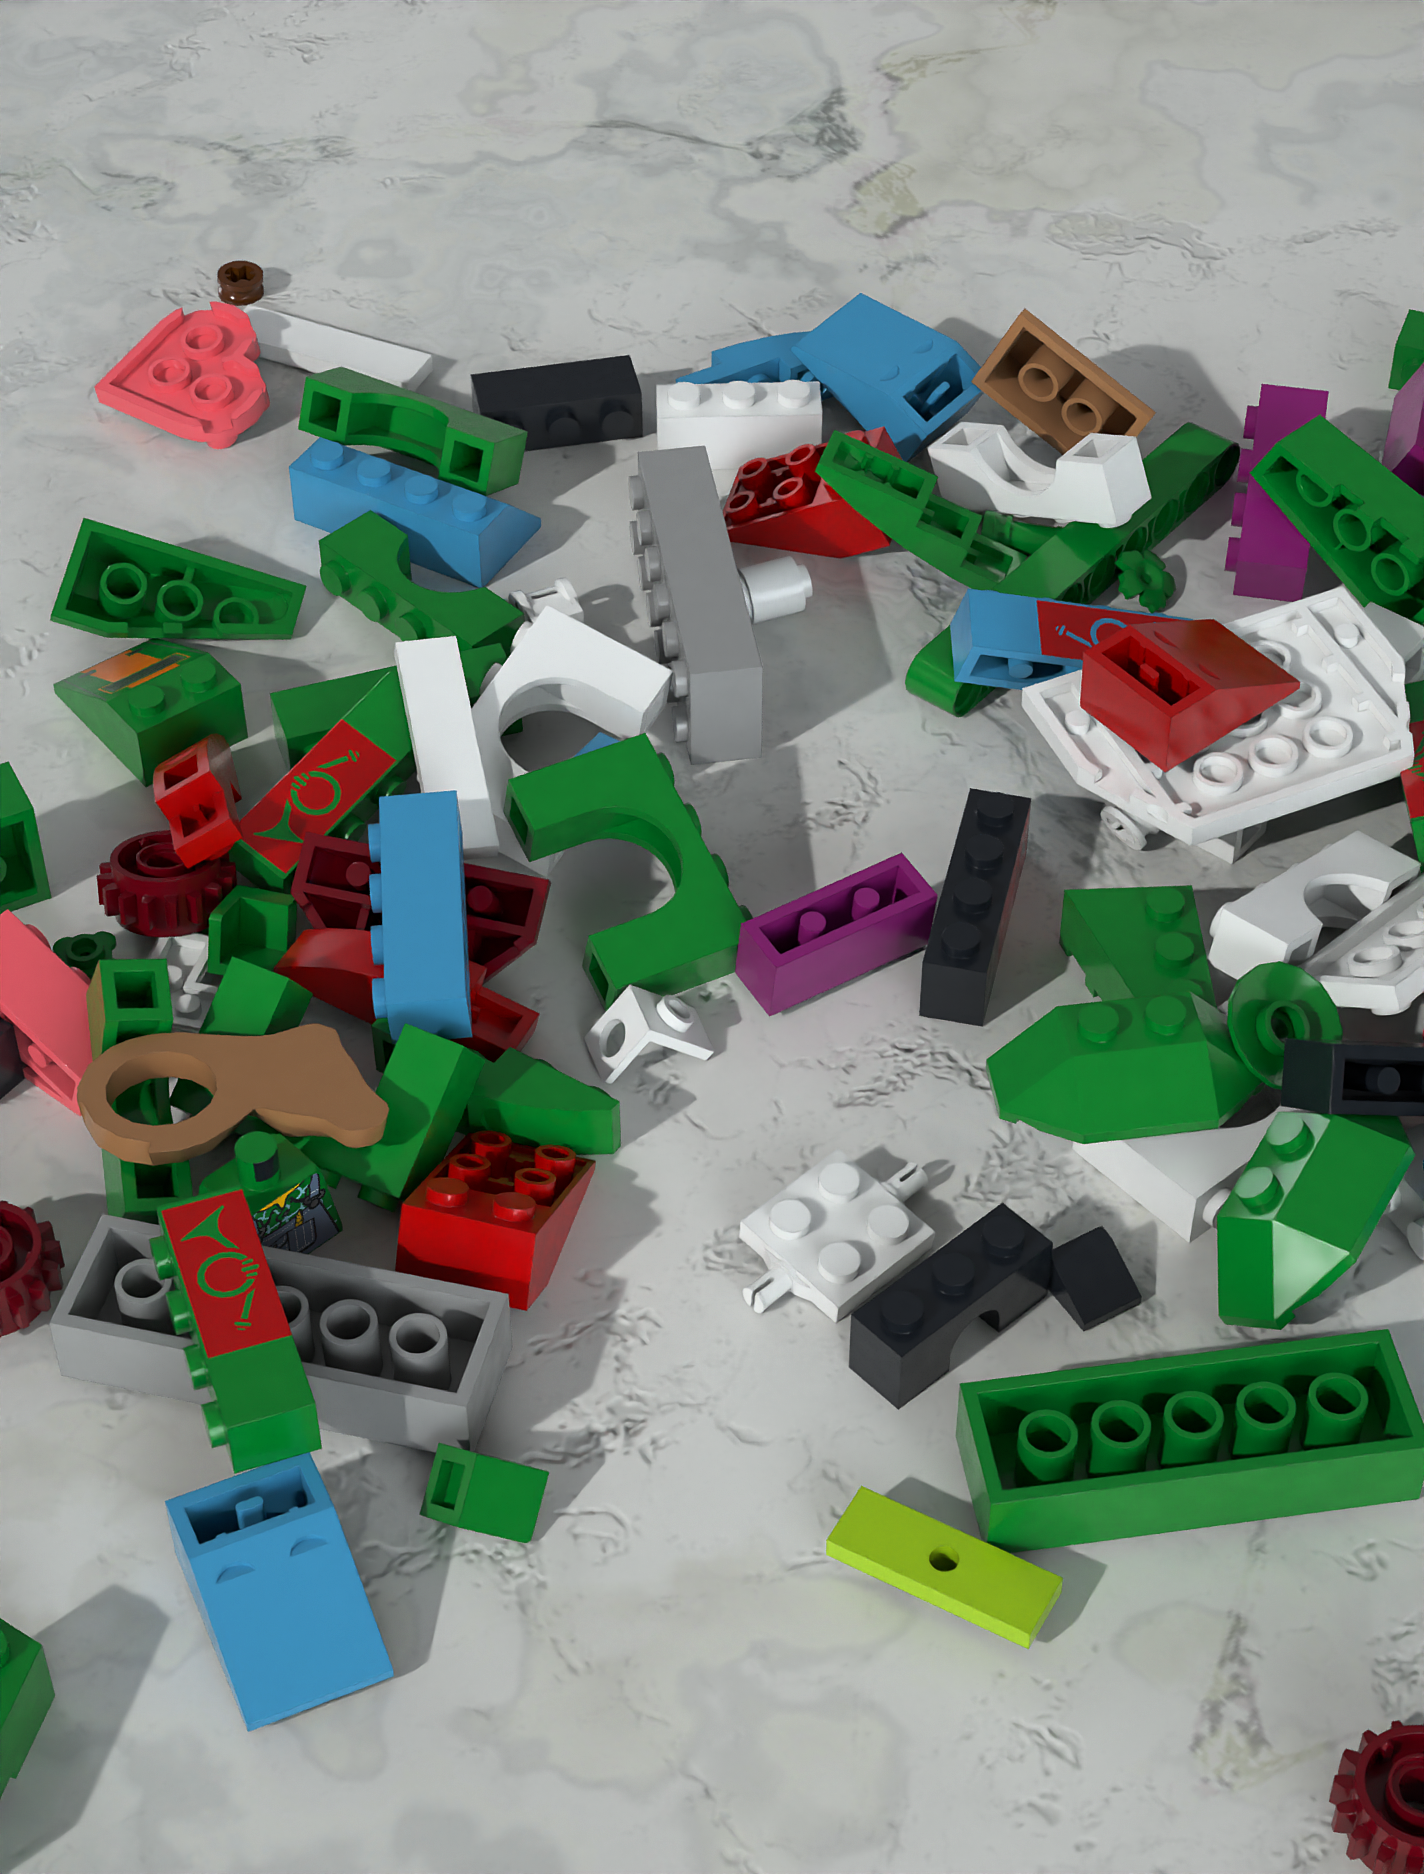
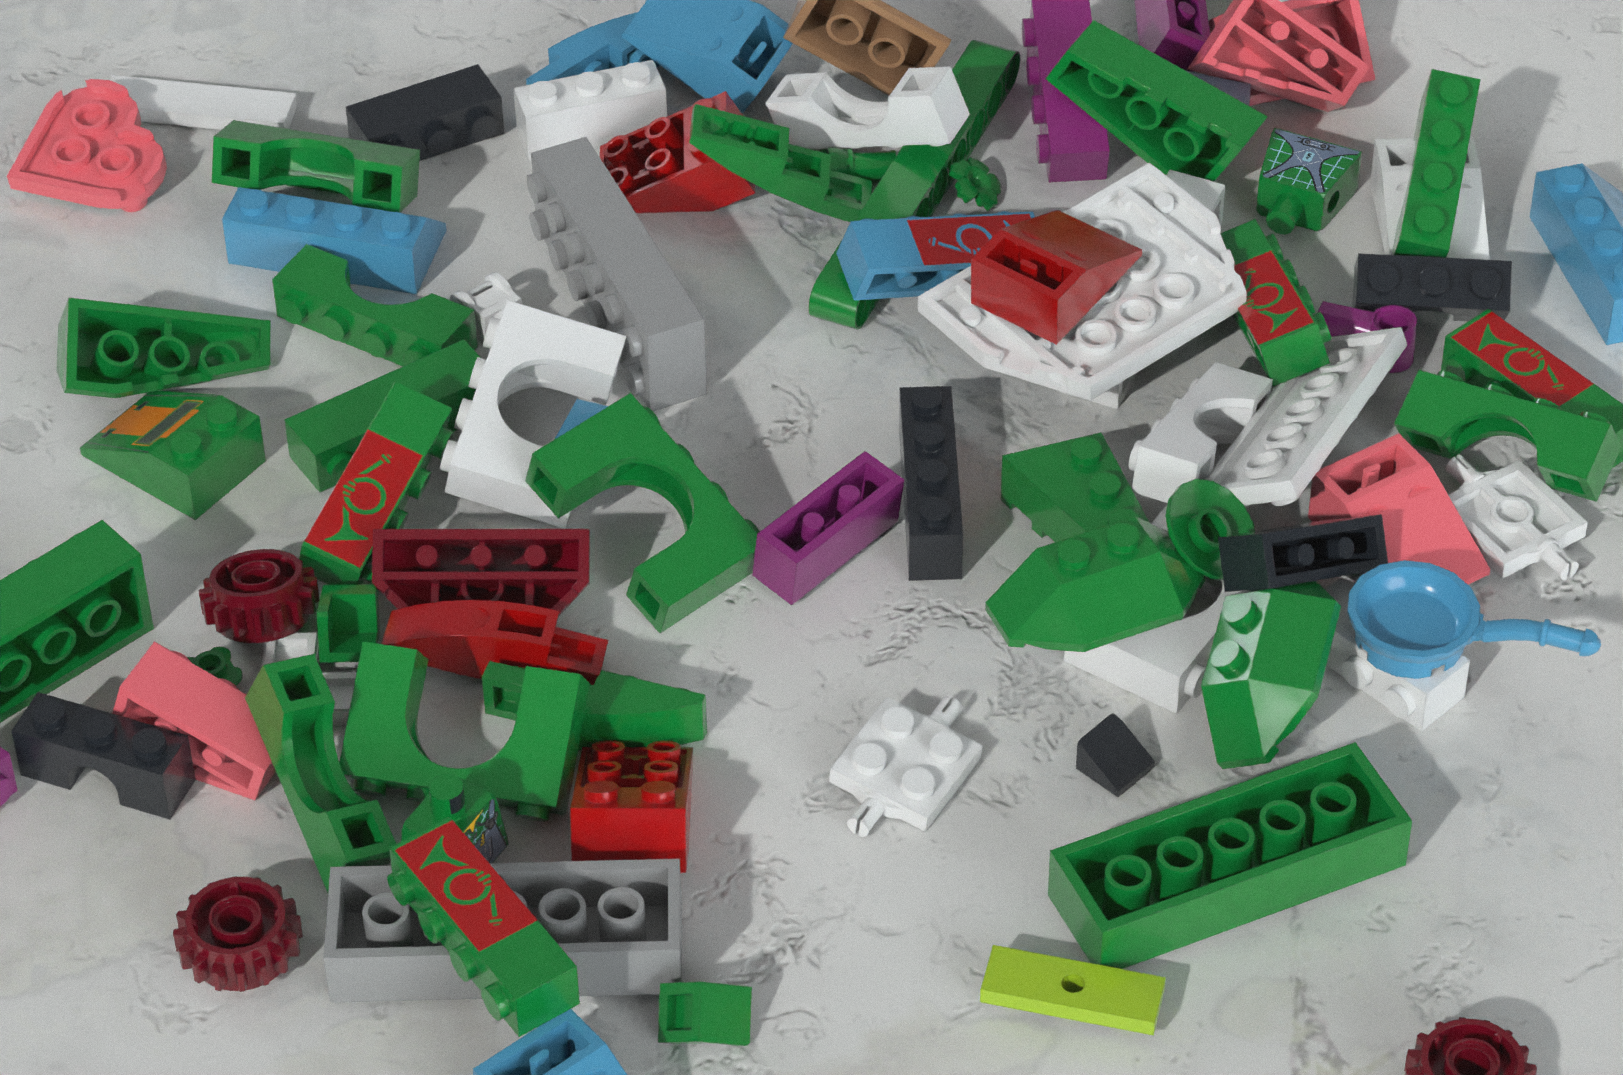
camera: 15 degrees left, 0 degrees up
(199, 799) = (269, 520): red slope -> none
(240, 283) = (93, 55): reddish brown bush -> none
(288, 1079) = (442, 729): medium nougat animal -> none
(422, 915) = (502, 577): dark azure brick -> none
(446, 735) = (465, 437): white tile -> none
(646, 1018) = (700, 627): white bracket -> none
(775, 588) = (679, 243): white brick -> none
(909, 1329) = (992, 819): black arch -> none
(1127, 826) = (1028, 394): white bush -> none

